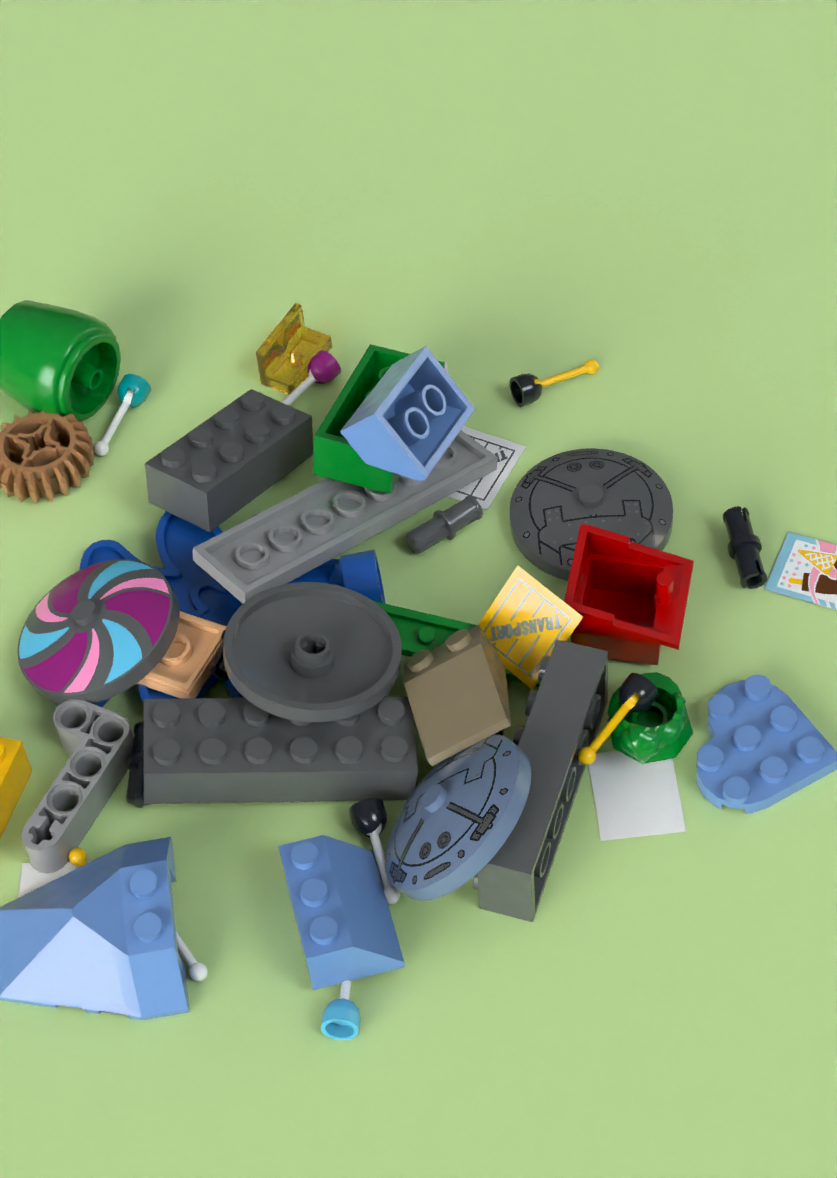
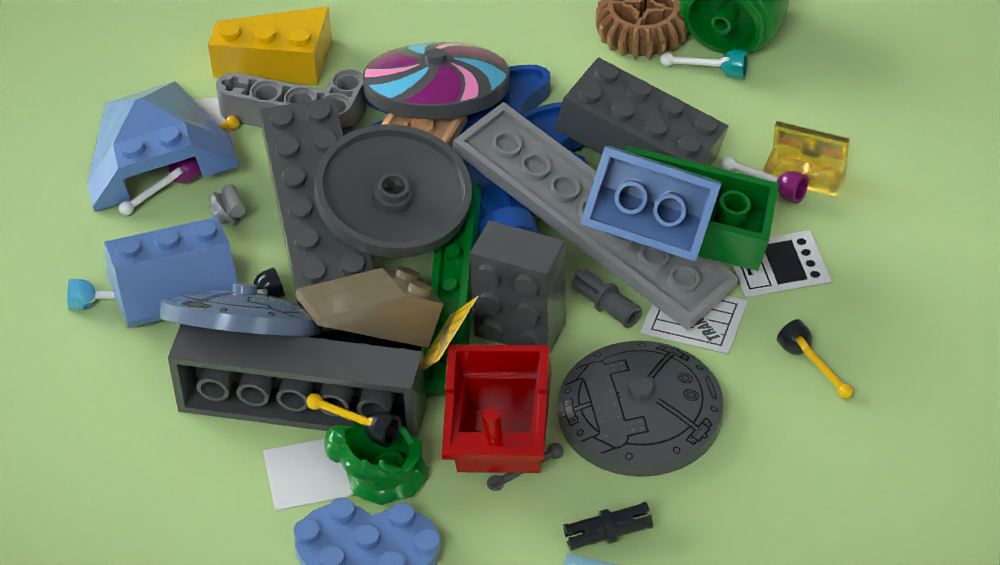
camera: 80 degrees right, 5 degrees down
(230, 854) = (227, 205): none -> light grey plate
(462, 558) = (518, 286): none -> dark grey brick

